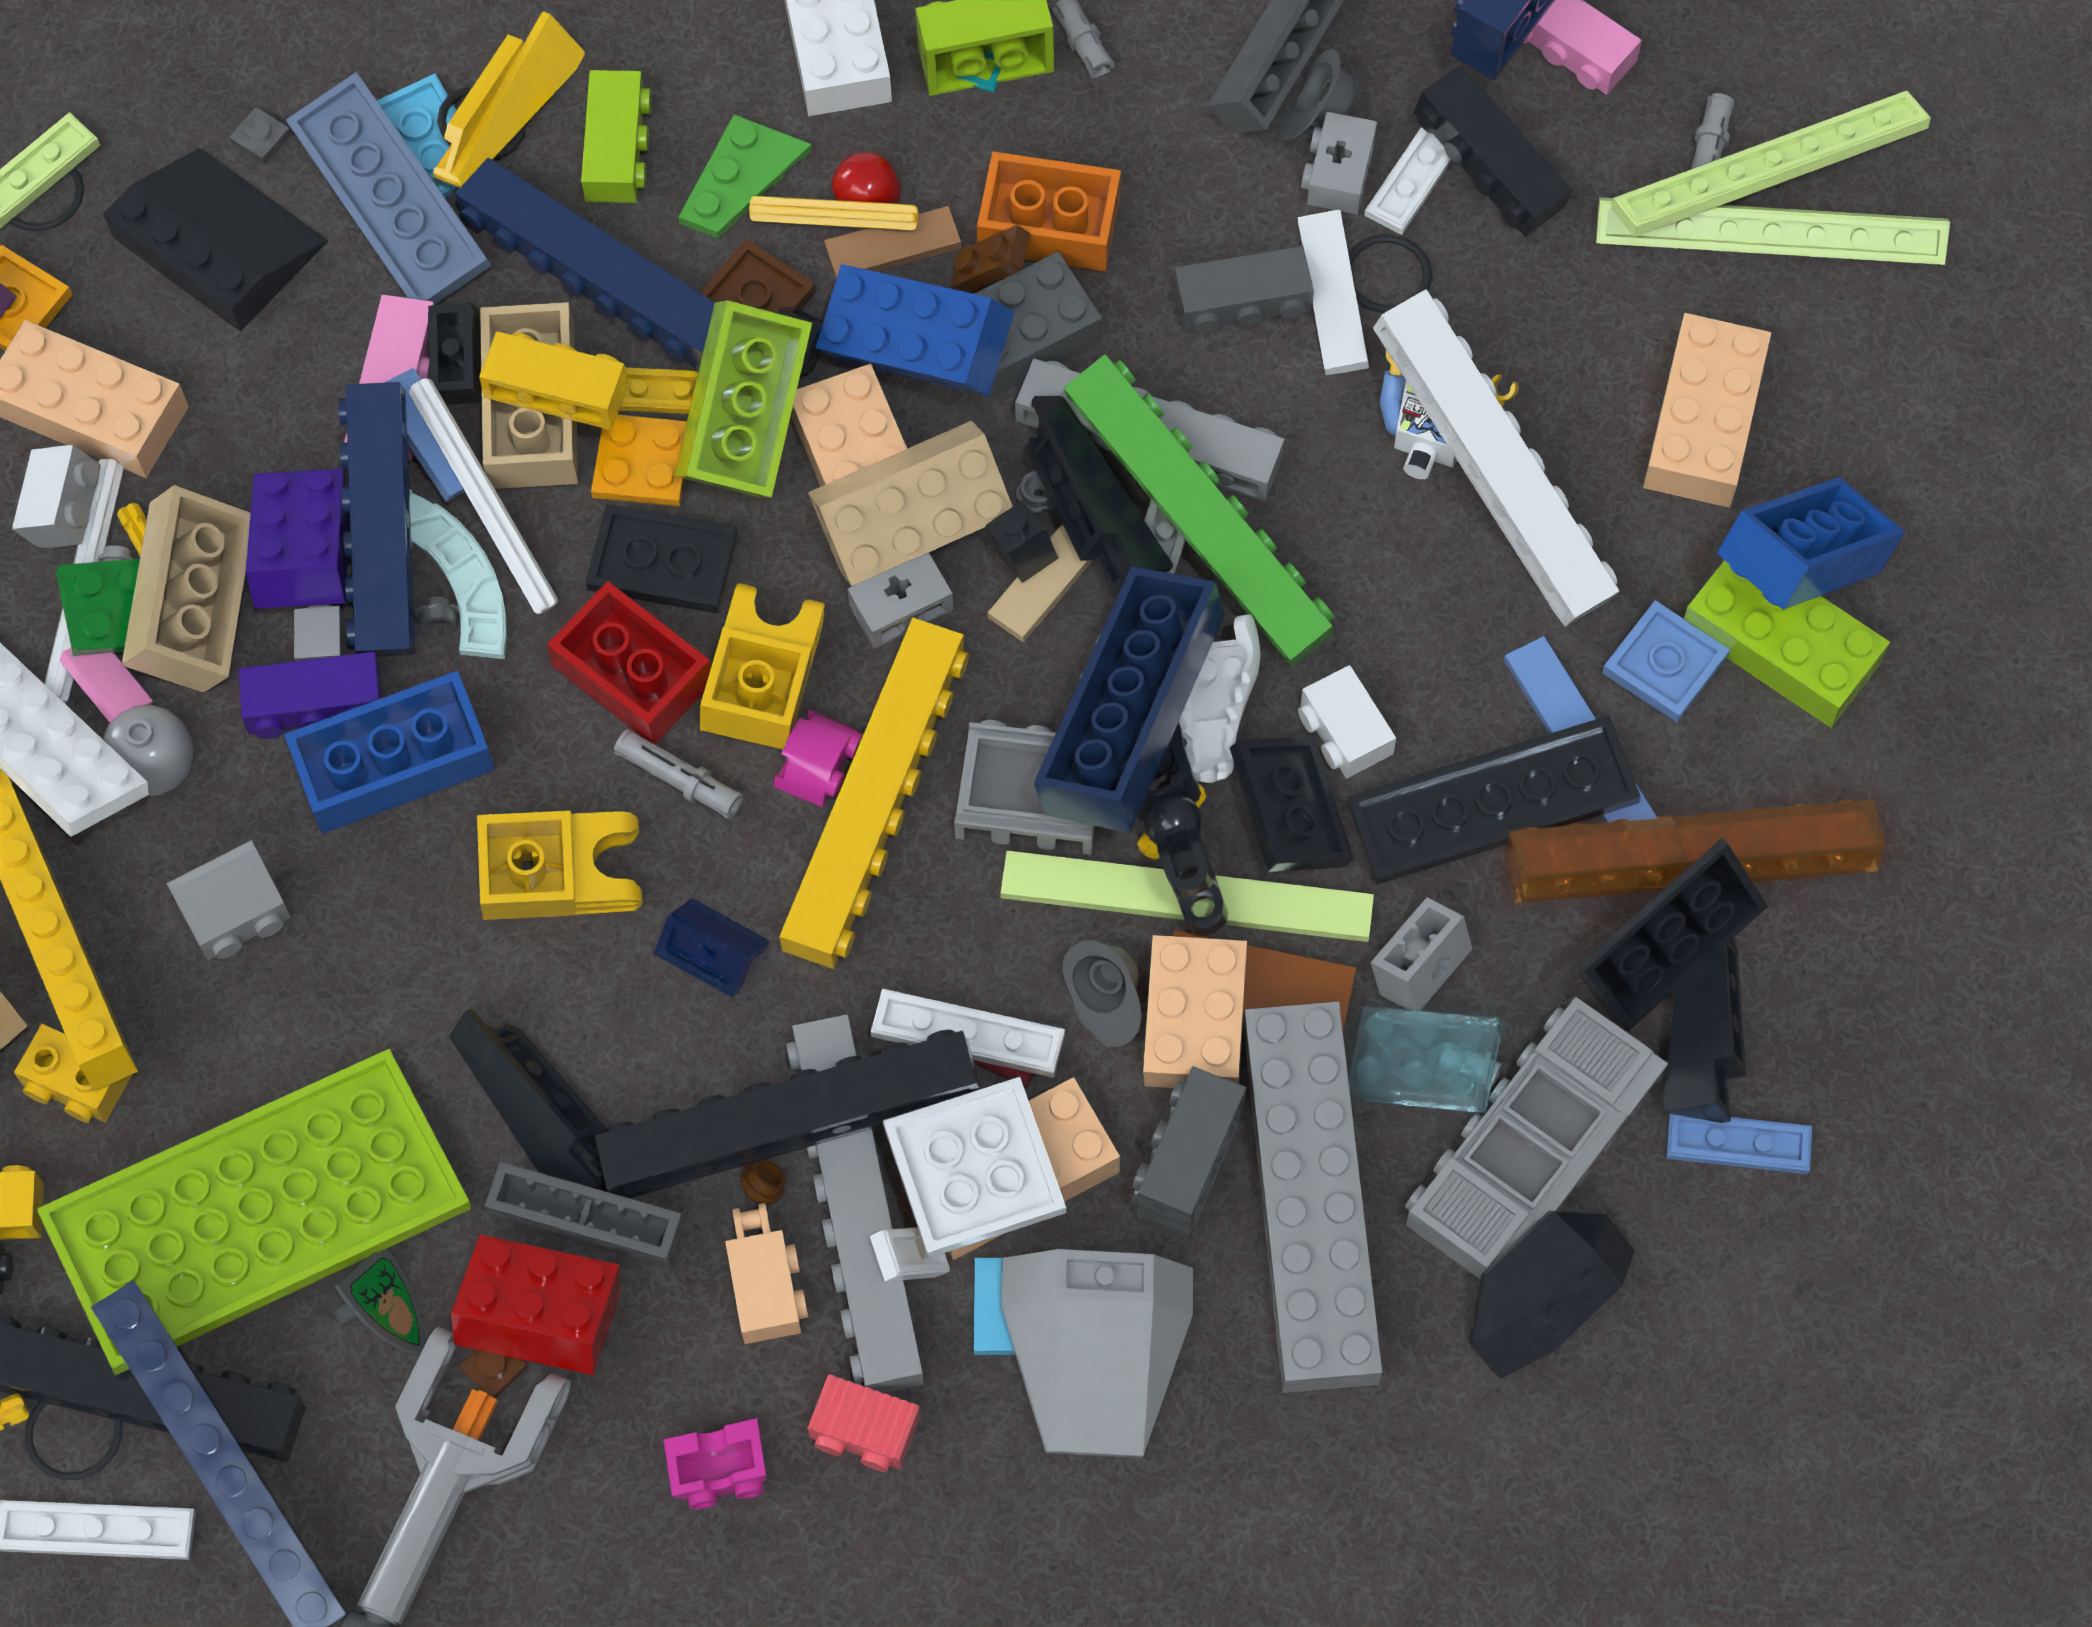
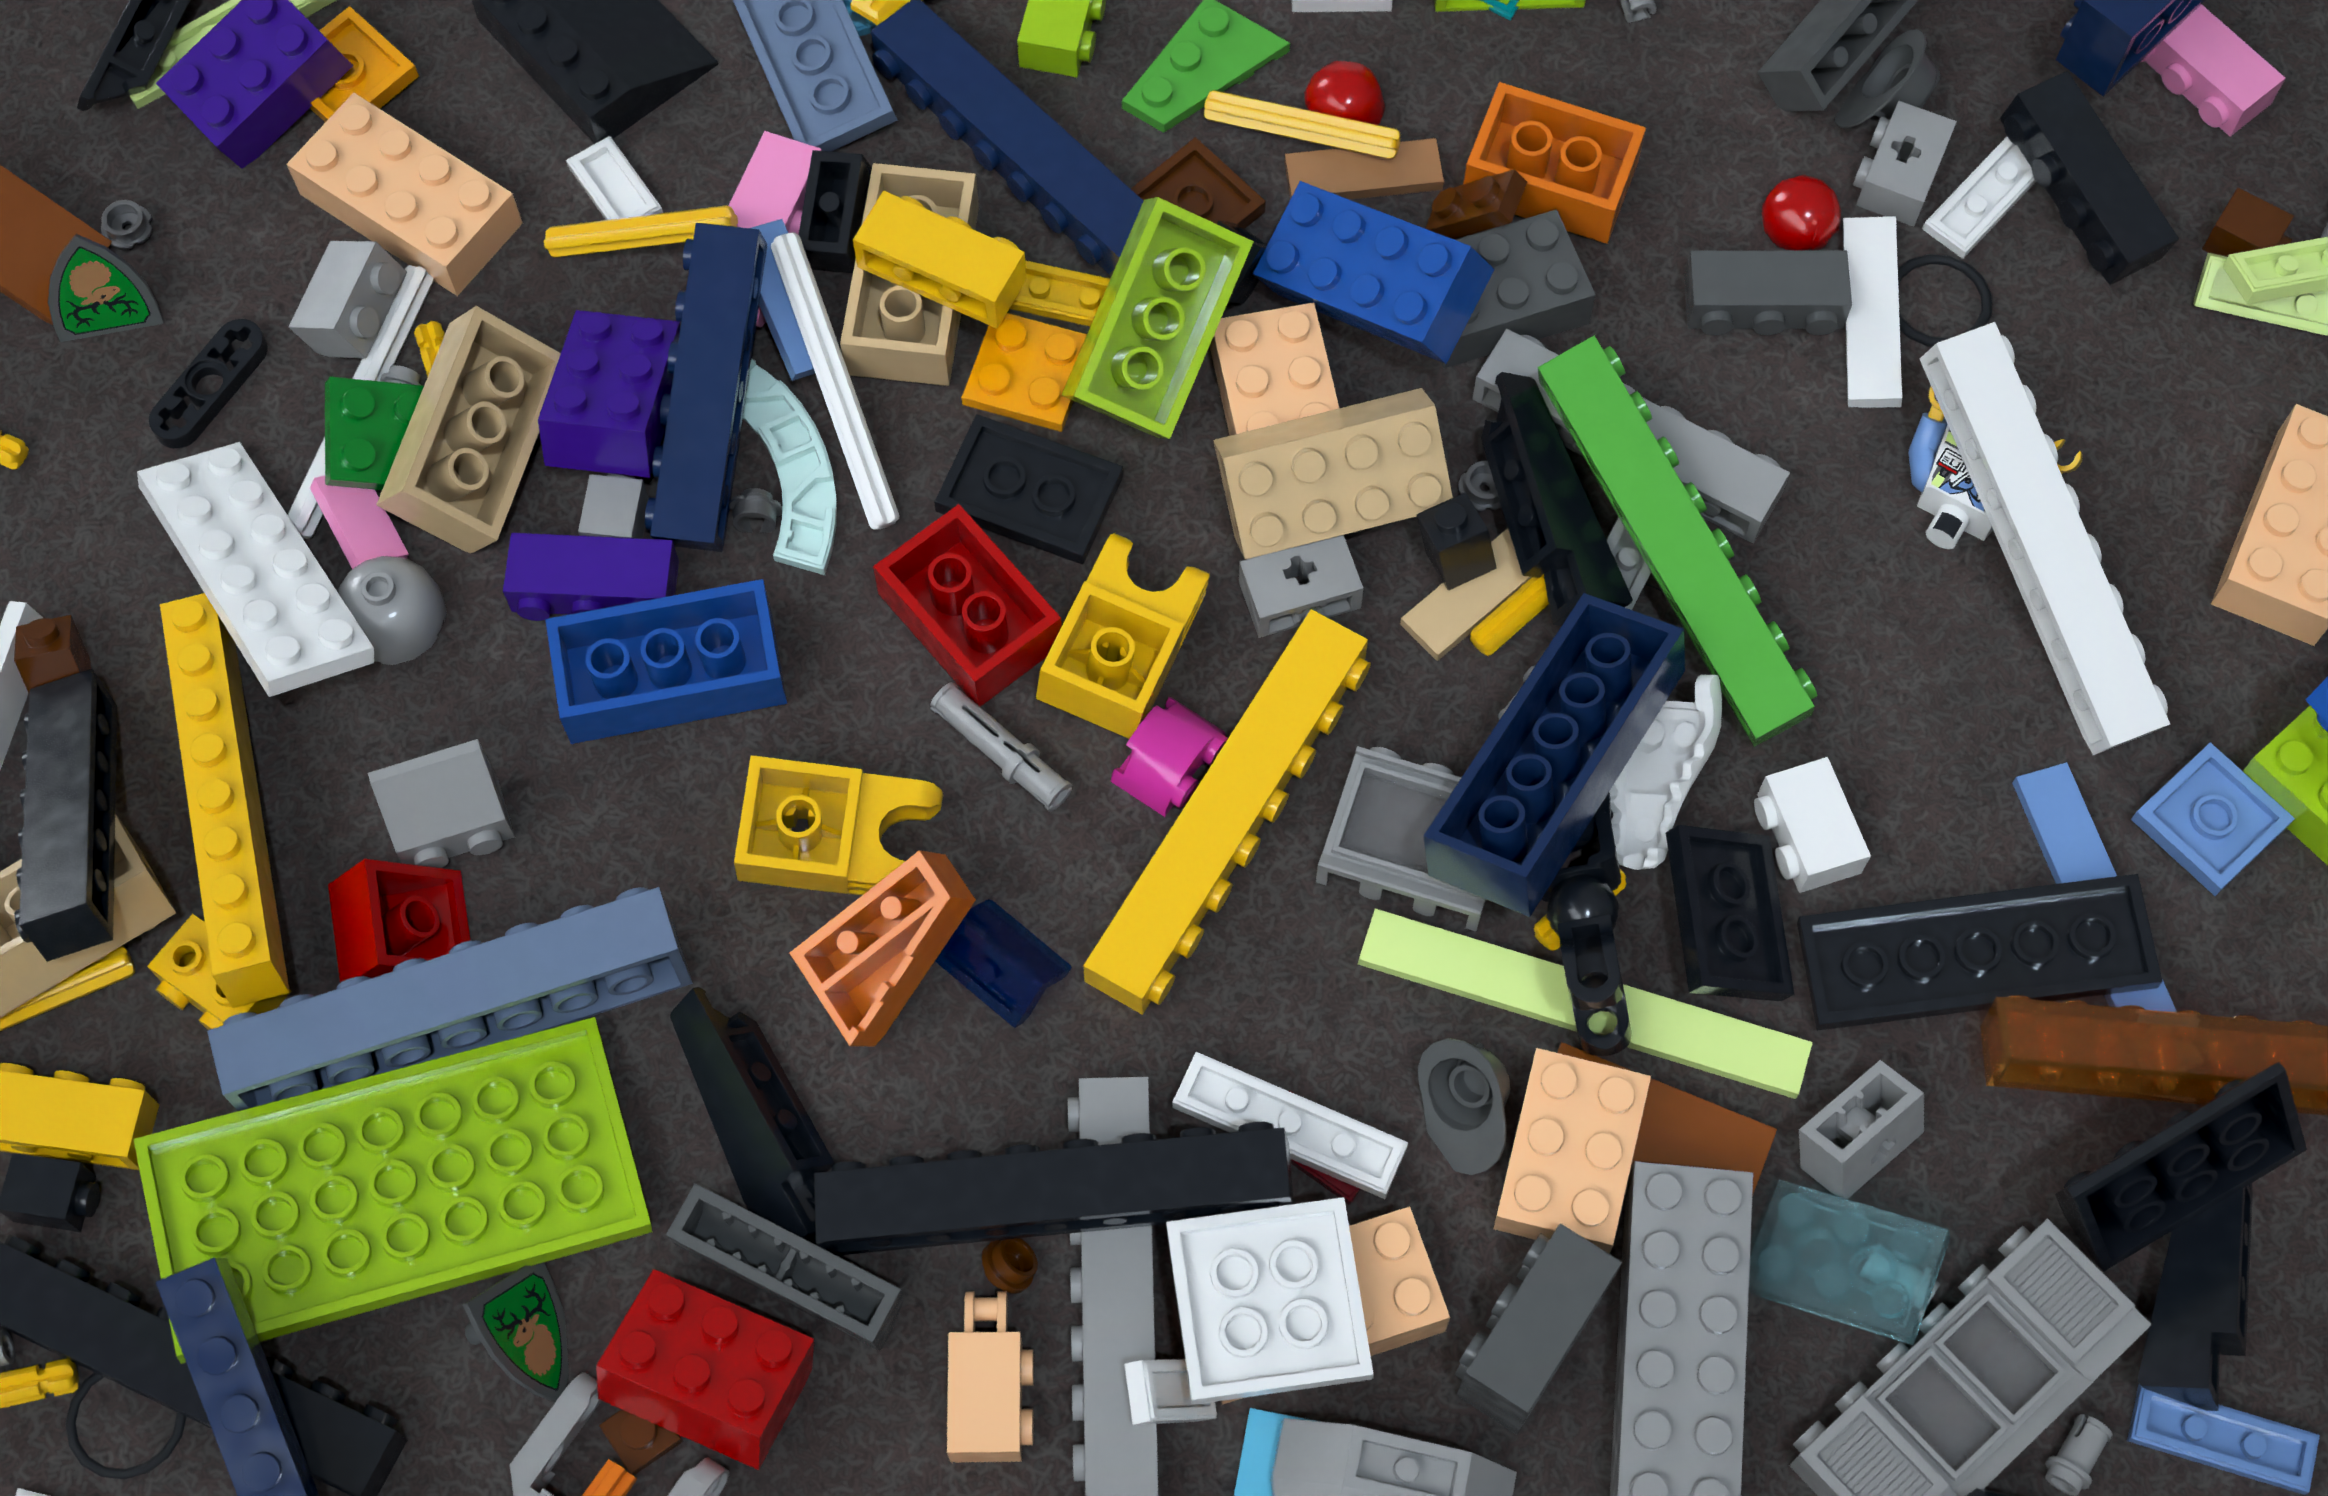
camera: 10 degrees right, 0 degrees up
(212, 1005) = (395, 915): none -> red slope
(261, 362) = (612, 182): none -> white tile
(276, 1054) = (454, 1002): none -> sand blue brick
(289, 398) = (633, 231): none -> yellow axle
(615, 948) = (883, 945): none -> orange wedge
(1076, 595) = (1510, 616): none -> yellow axle
(1262, 219) = (1801, 213): none -> red hair
(1628, 1174) = (2078, 1455): none -> light grey pin
(1629, 169) = (2248, 225): none -> reddish brown brick

